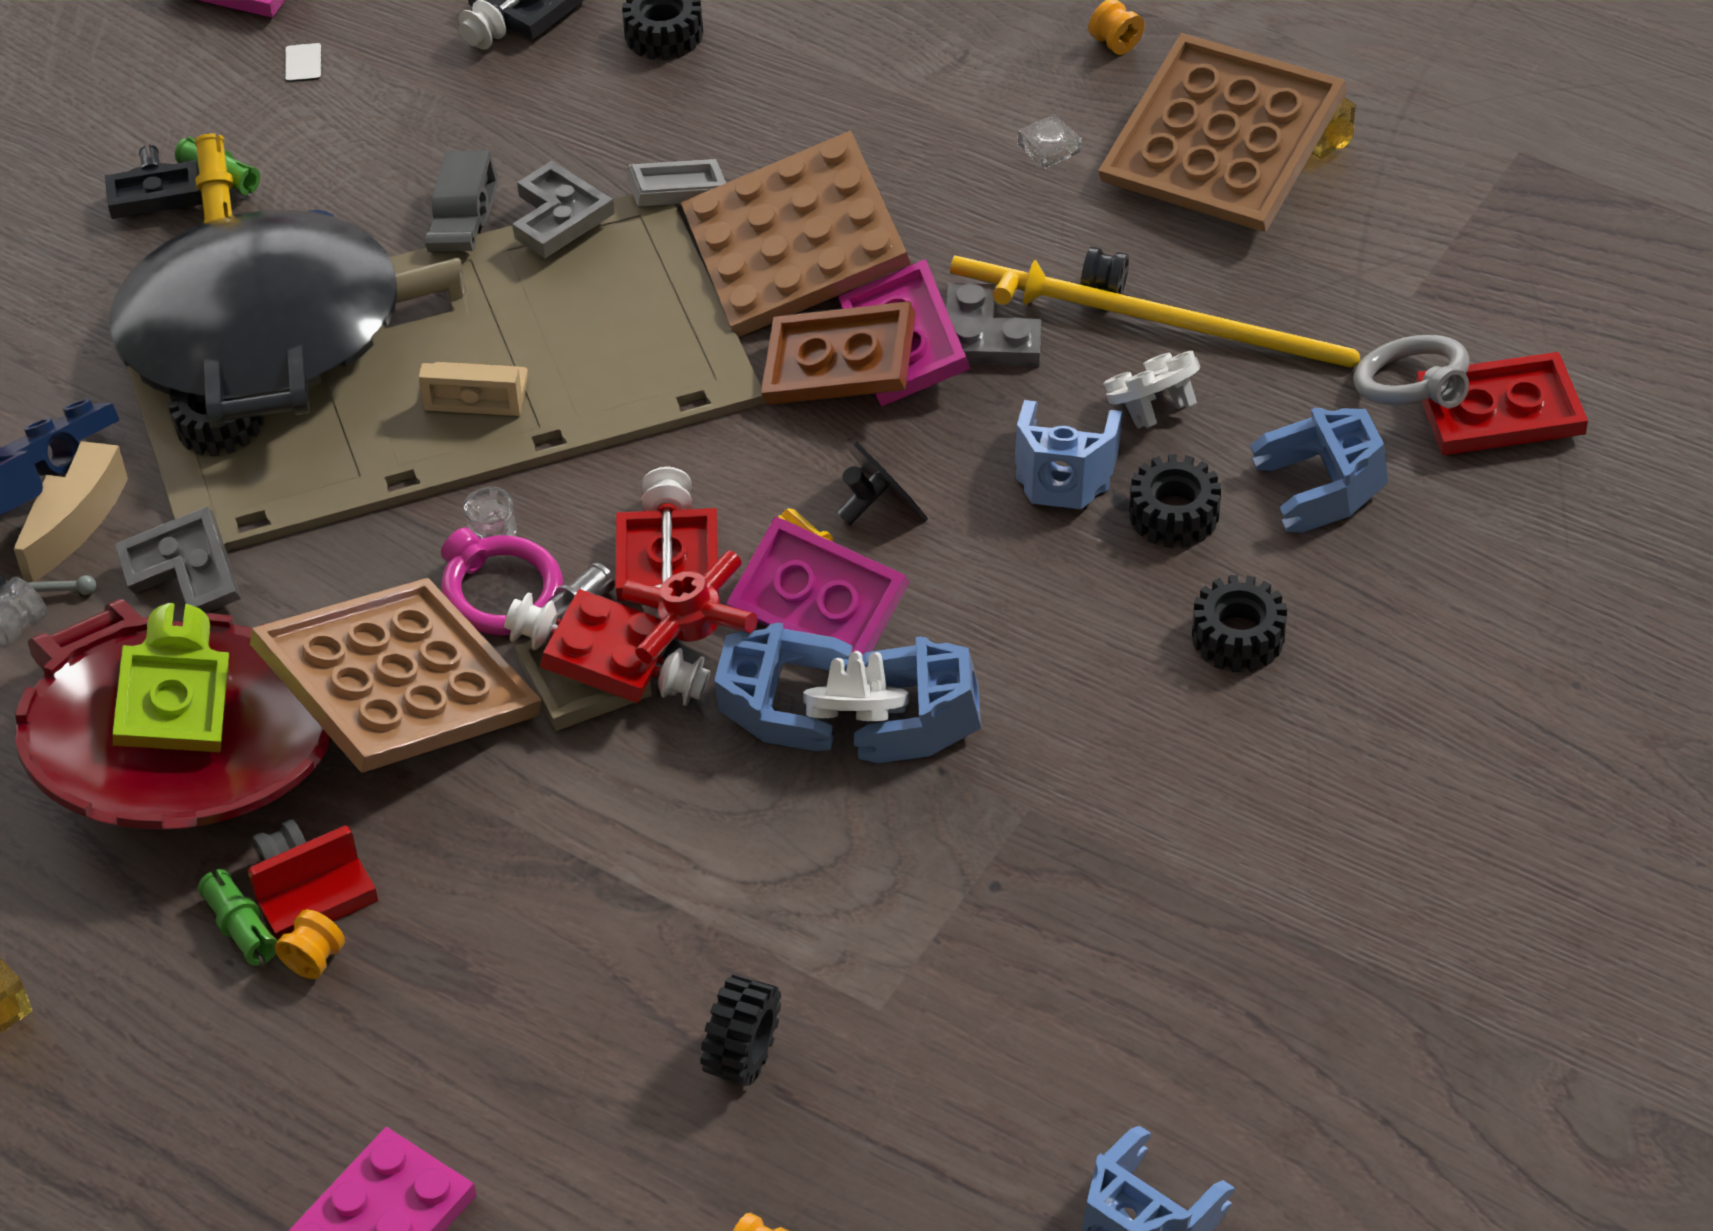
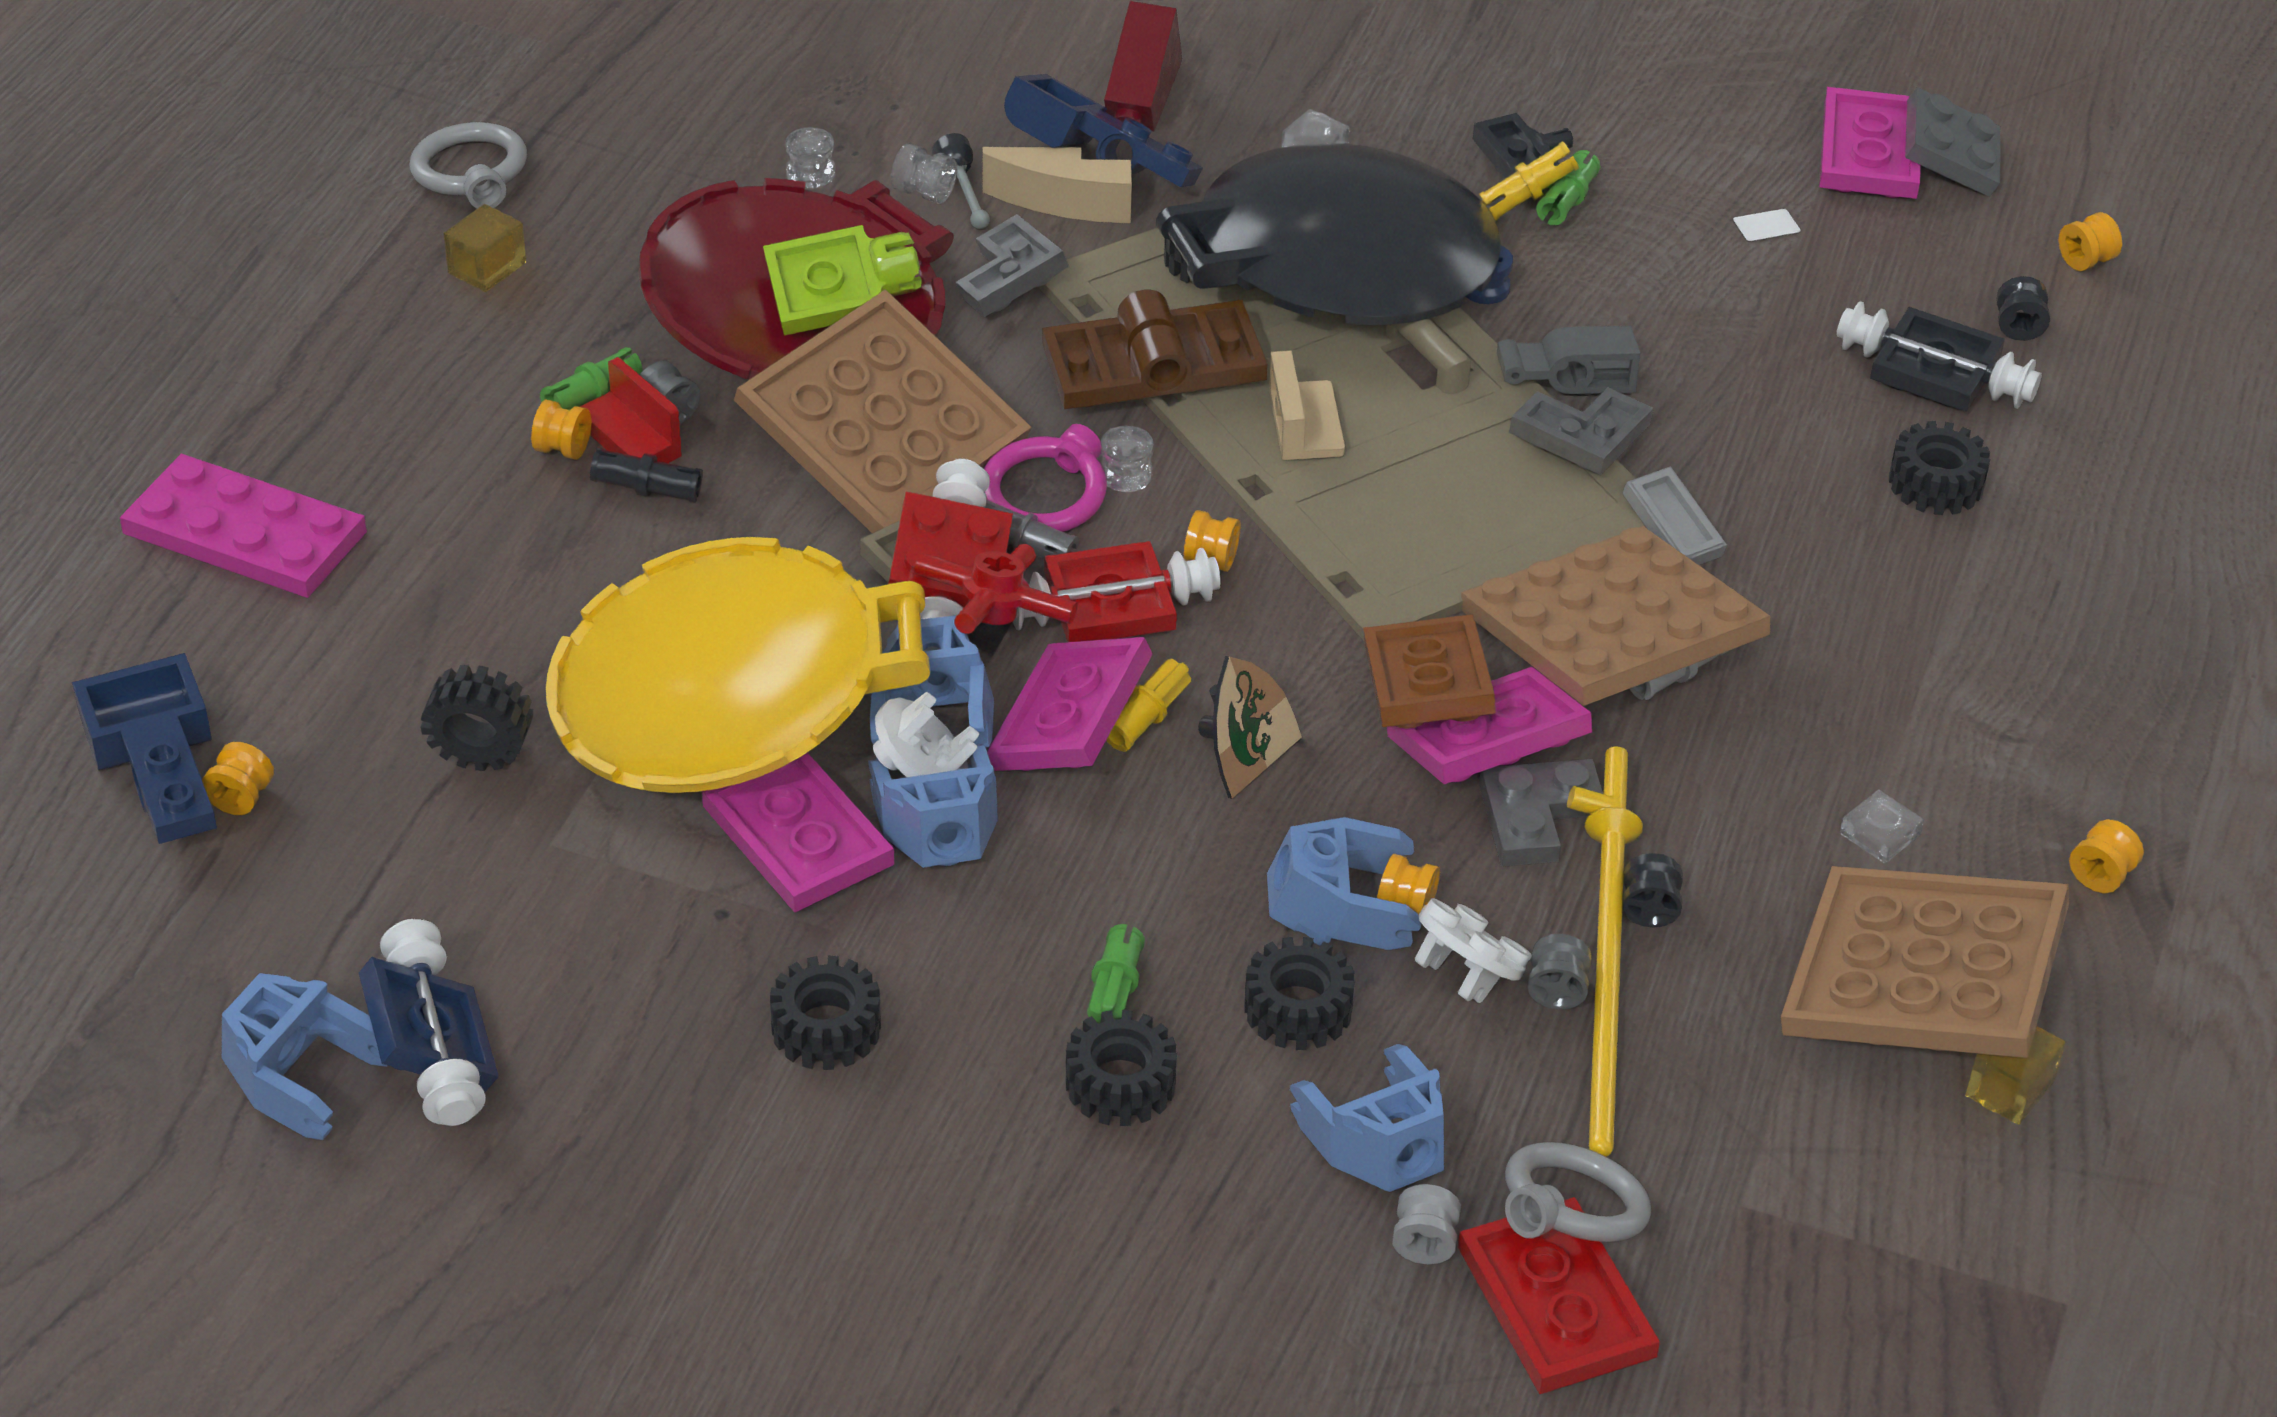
camera: 75 degrees right, 5 degrees down
(61, 324) = (1313, 129): none -> clear plate
(360, 474) = (1153, 351): none -> reddish brown plate
(396, 882) = (646, 474): none -> black pin
(622, 473) = (1217, 538): none -> light orange wheel
(724, 826) = (726, 663): none -> yellow dish
(916, 810) = (800, 832): none -> dark pink plate
(1076, 408) = (1408, 883): none -> light orange wheel
(1136, 613) = (1115, 973): none -> bright green axle
(1136, 1093) = (428, 1023): none -> plate
(1141, 836) = (825, 1038): none -> black tyre
(1182, 337) = (1559, 971): none -> dark grey wheel
(1429, 462) = (1426, 1224): none -> light grey wheel

